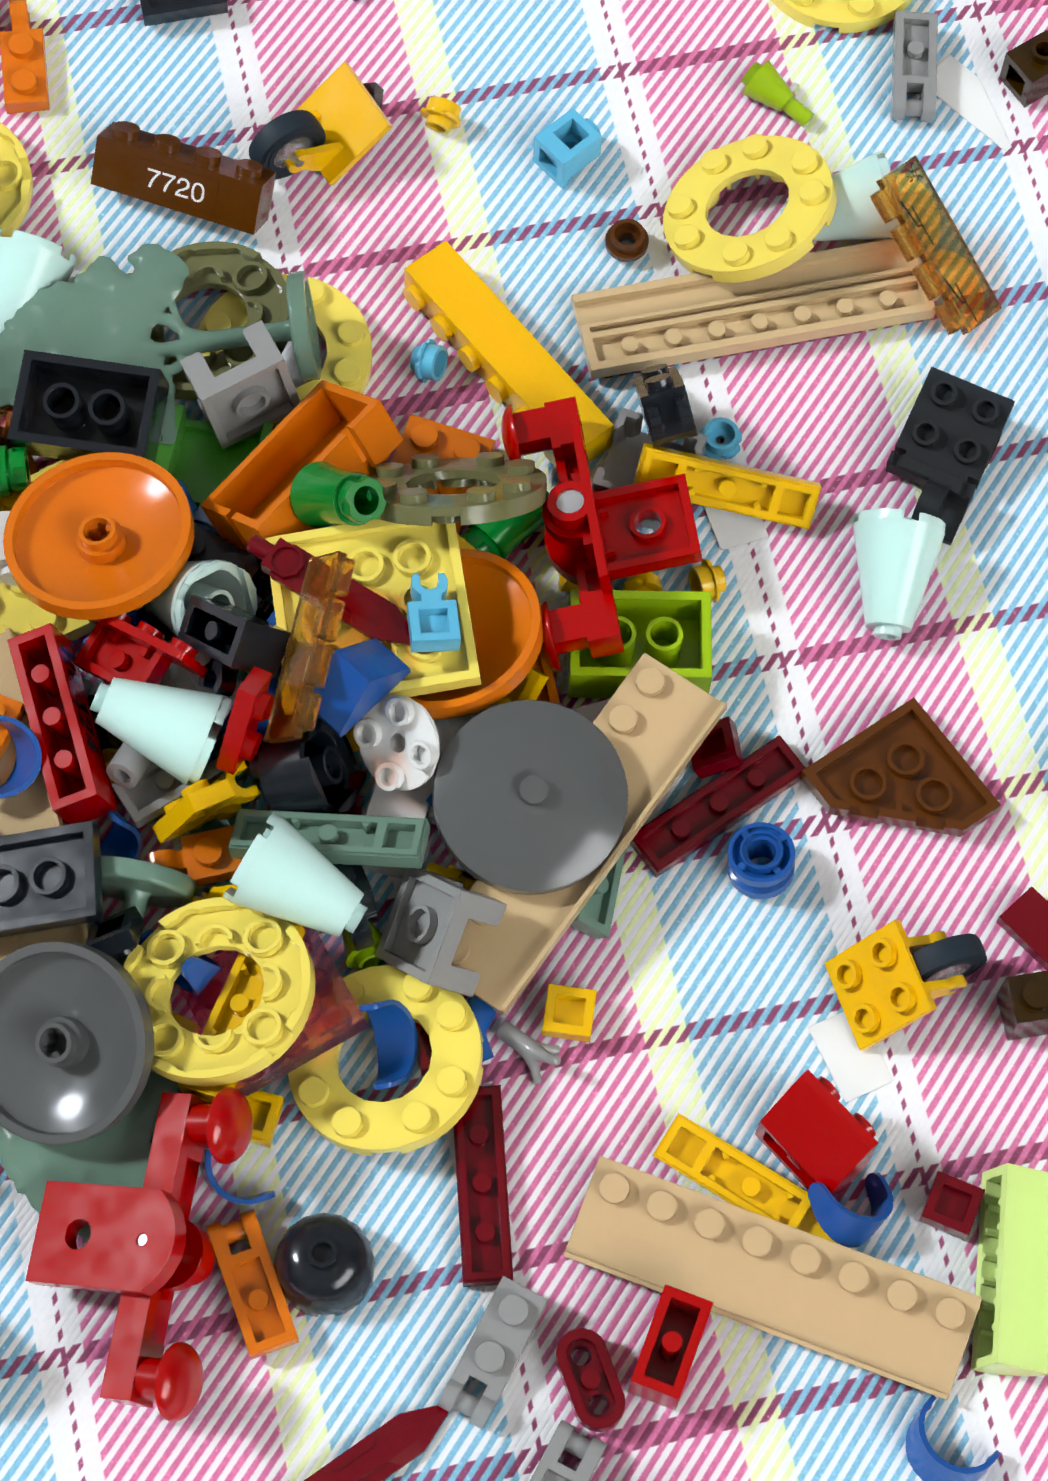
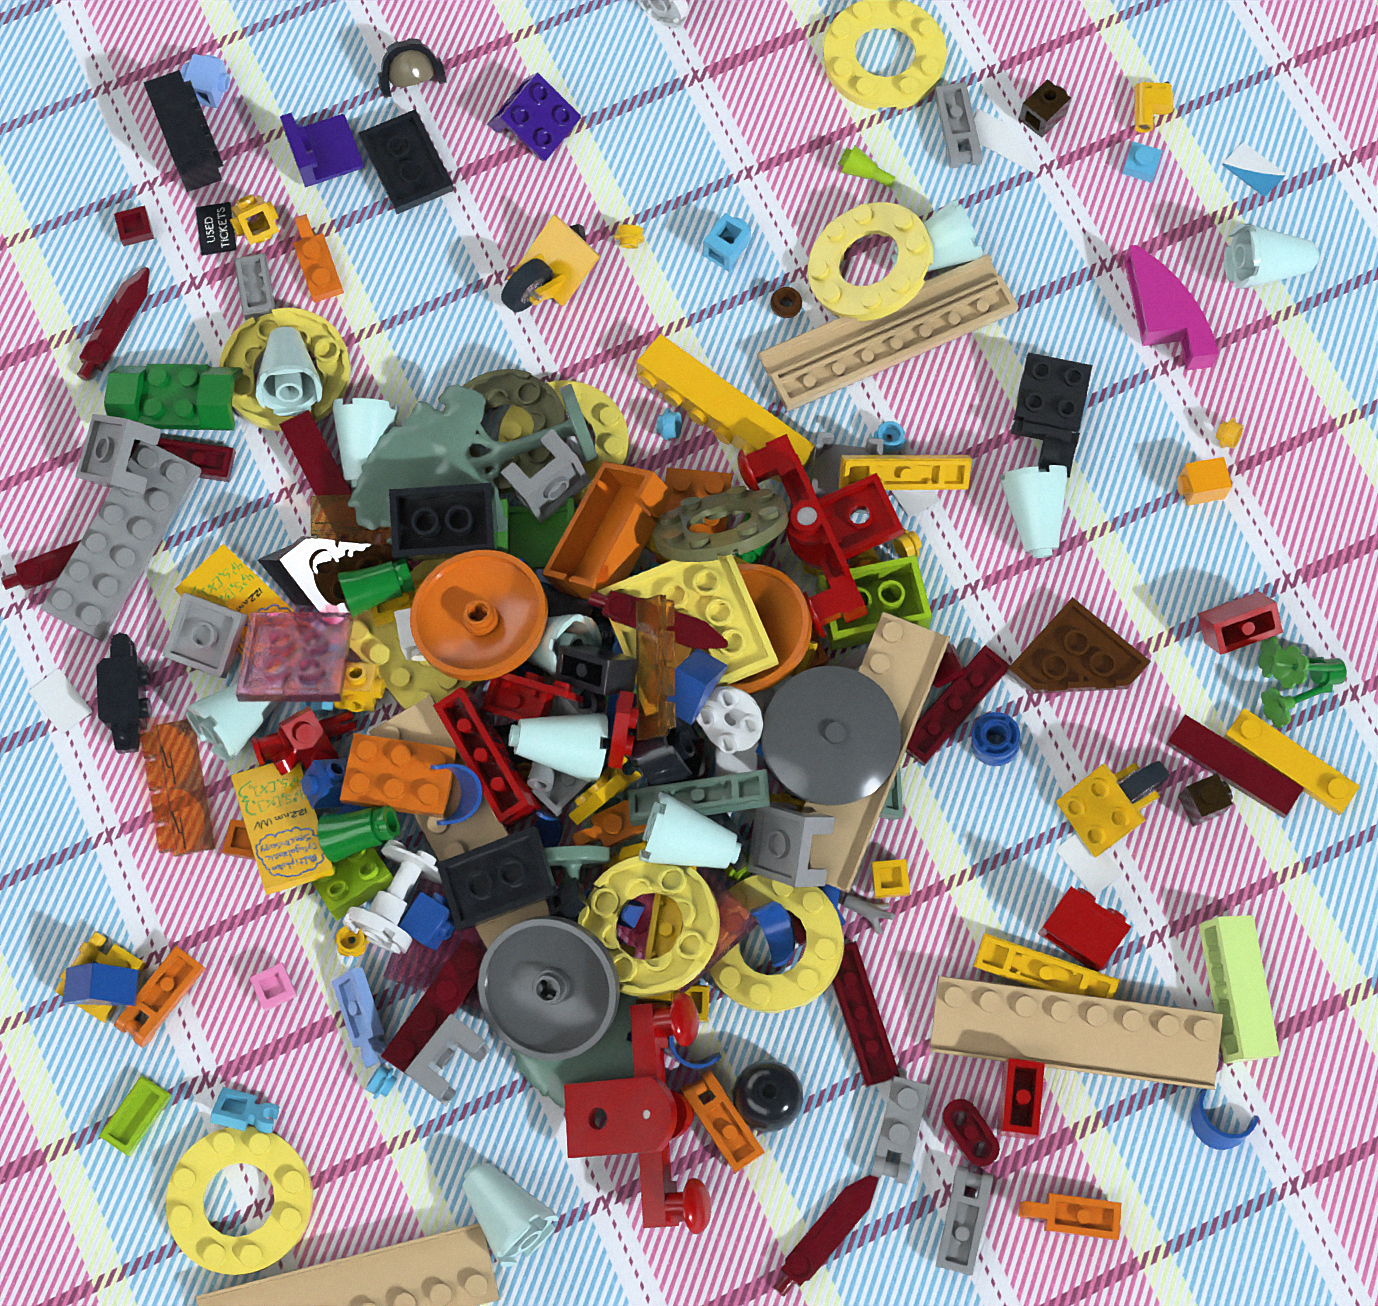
camera: 10 degrees left, 5 degrees up
(183, 177) = (458, 326): reddish brown brick -> none
(332, 496) = (641, 550): green plant -> none
(432, 618) = (735, 627): medium azure plate -> none
(664, 404) = (849, 424): black hinge -> none
(846, 1226) = (1115, 985): blue helmet -> none
(933, 237) = (1006, 256): clear orange windscreen -> none
(952, 1205) = (1185, 953): dark red plate -> none

